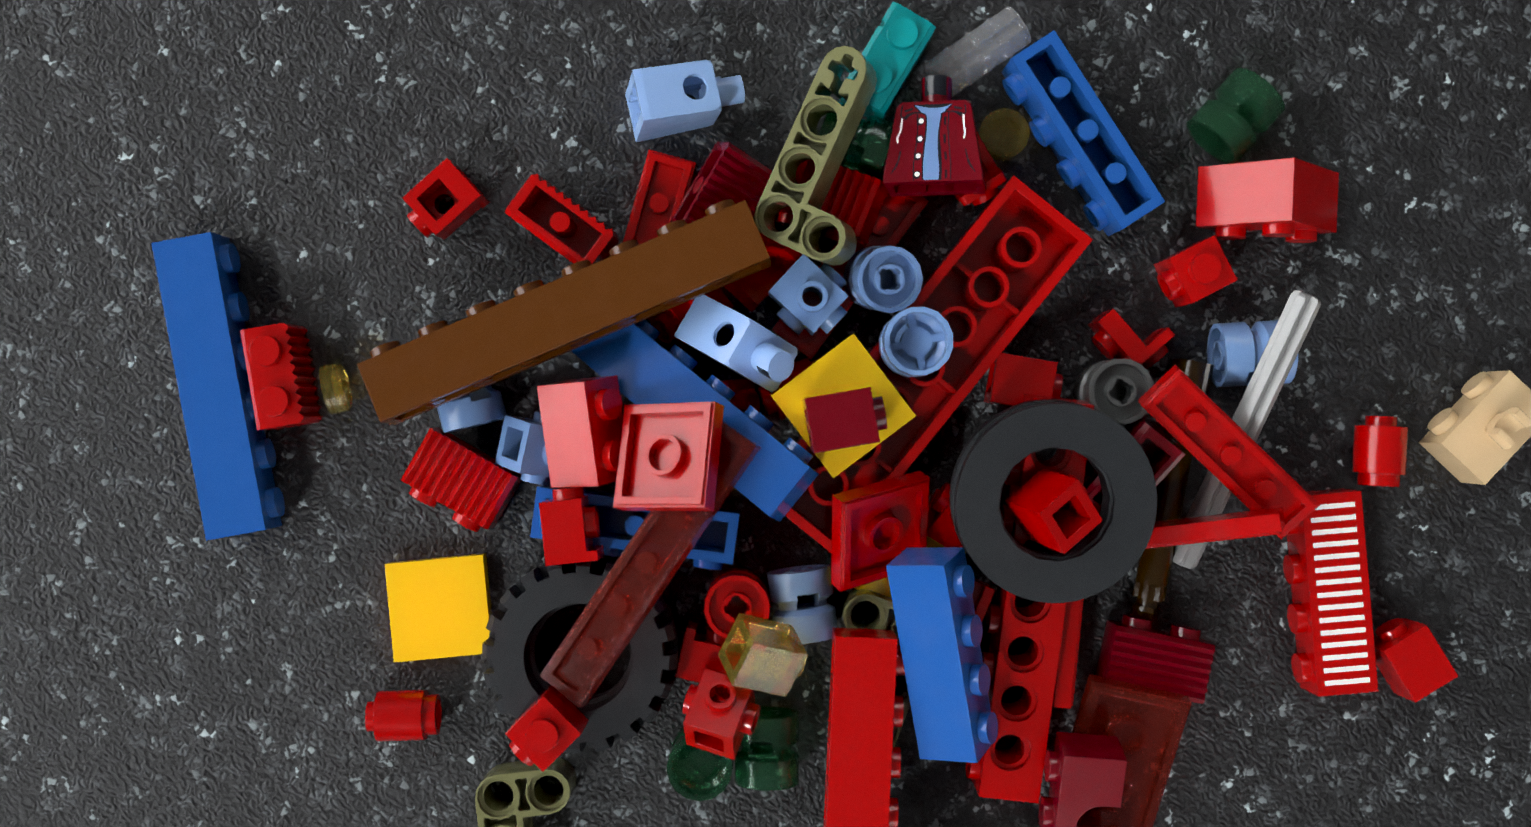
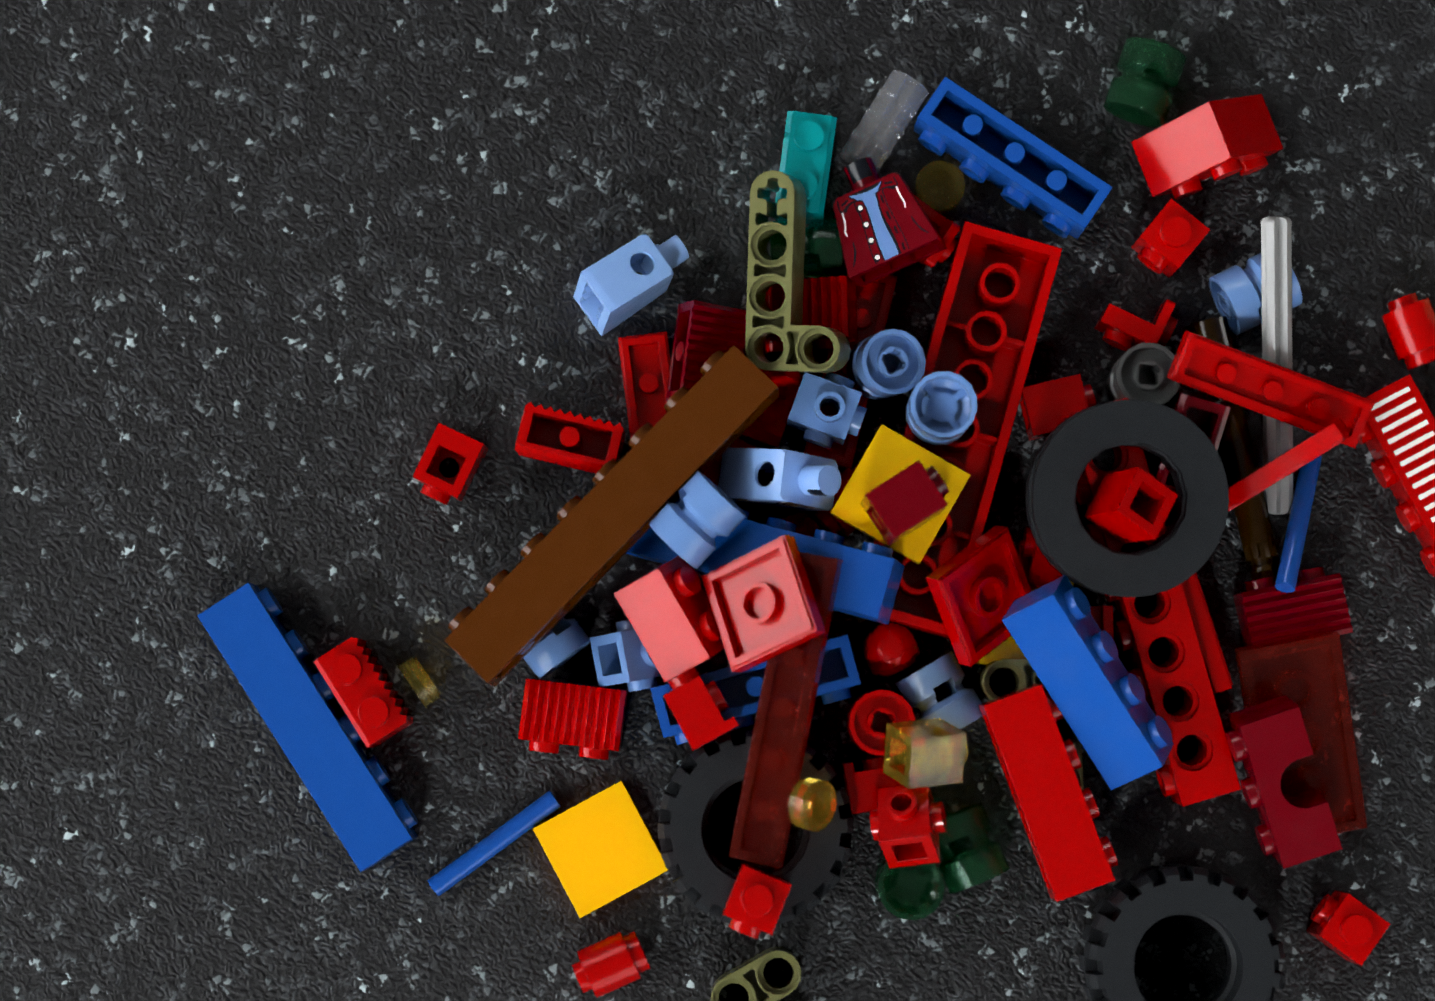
camera: 20 degrees left, 5 degrees down
(346, 561) = (494, 843): none -> blue bar
(636, 661) = (812, 804): none -> clear yellow tile
(640, 351) = (697, 519): none -> medium blue wheel
(775, 541) = (890, 649): none -> red piece
(1191, 591) = (1297, 526): none -> blue bar

